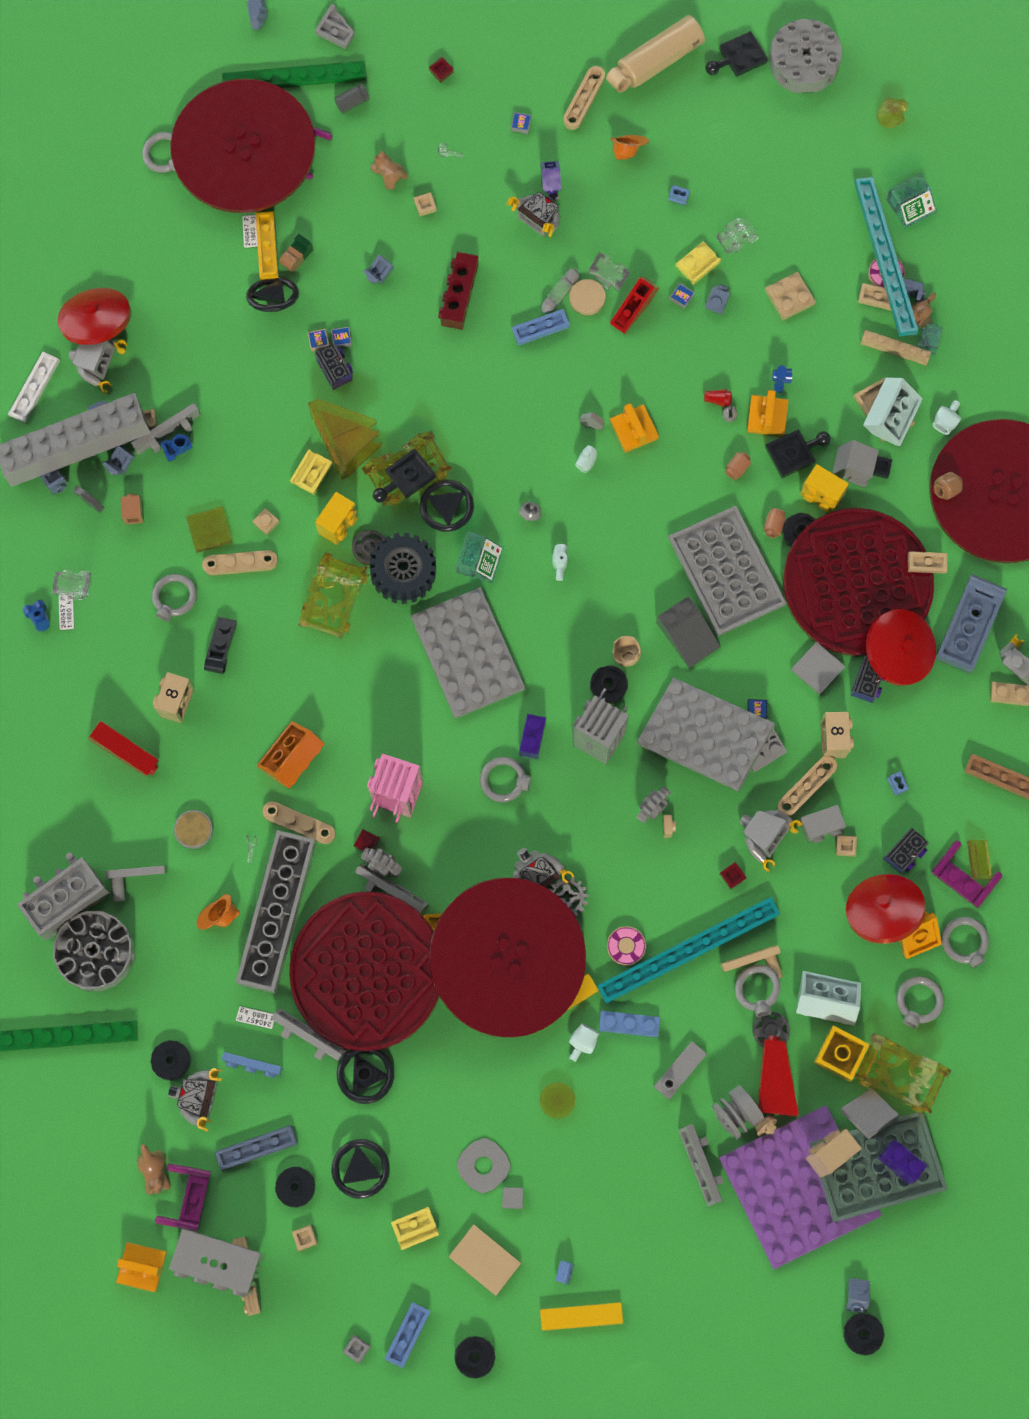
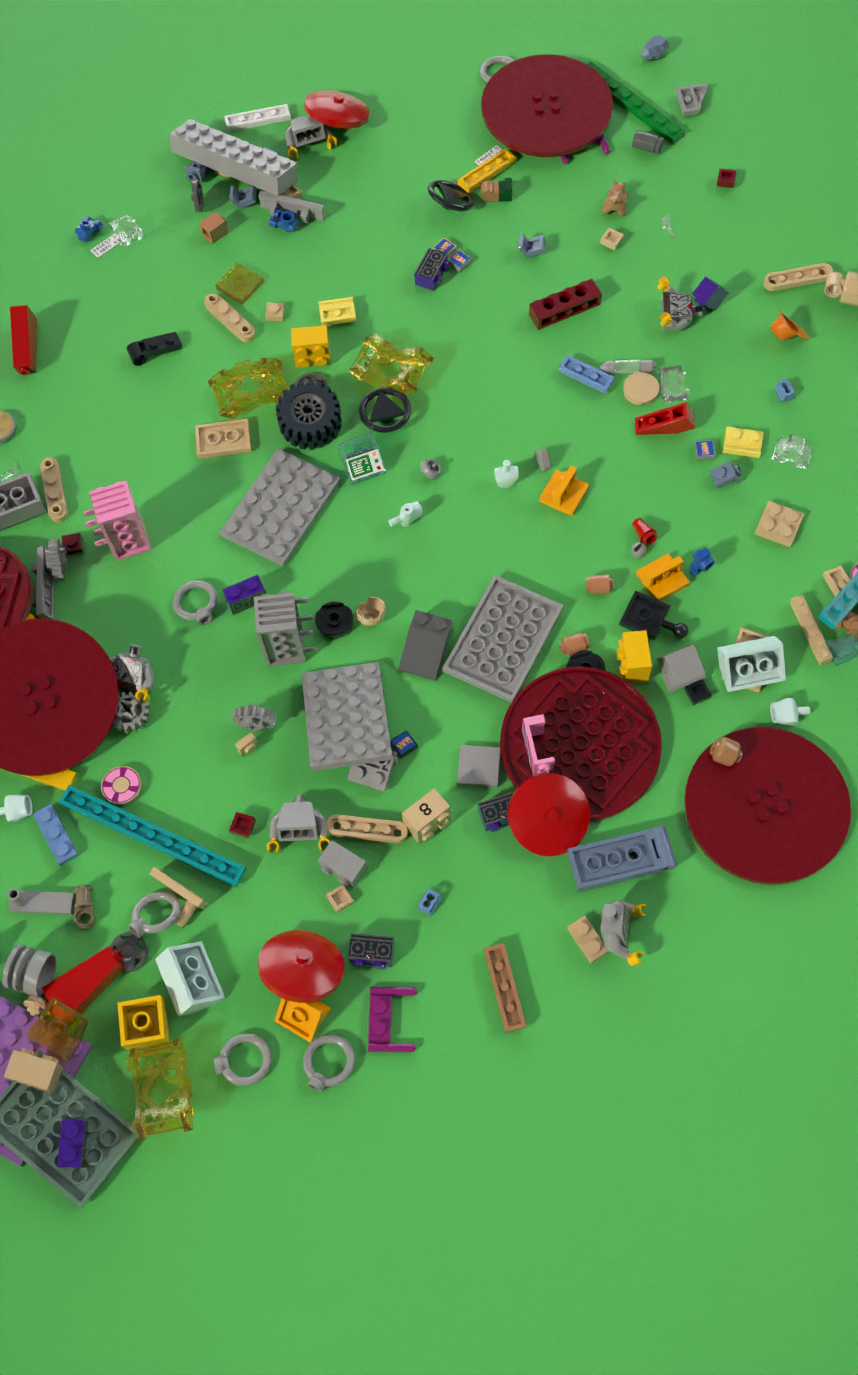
camera: 55 degrees right, 10 degrees down
(165, 612) = (152, 299): light grey piece -> none
(173, 697) = (86, 342): tan brick -> none
(290, 754) = (102, 447): orange slope -> none
(344, 435) = (378, 308): clear yellow ladder -> none
(361, 652) = (223, 438): none -> tan tile
(408, 475) = (380, 364): black plate -> none
(521, 123) = (737, 253): tile -> none
(708, 1039) = (84, 906): none -> dark tan connector
(806, 1117) = (58, 1030): none -> clear yellow slope
(844, 619) = (532, 727): none -> bright pink panel
(870, 1113) = (104, 1086): light grey tile -> none
(927, 562) = (643, 783): tan plate -> none
(979, 859) = (412, 1020): clear yellow tile -> none

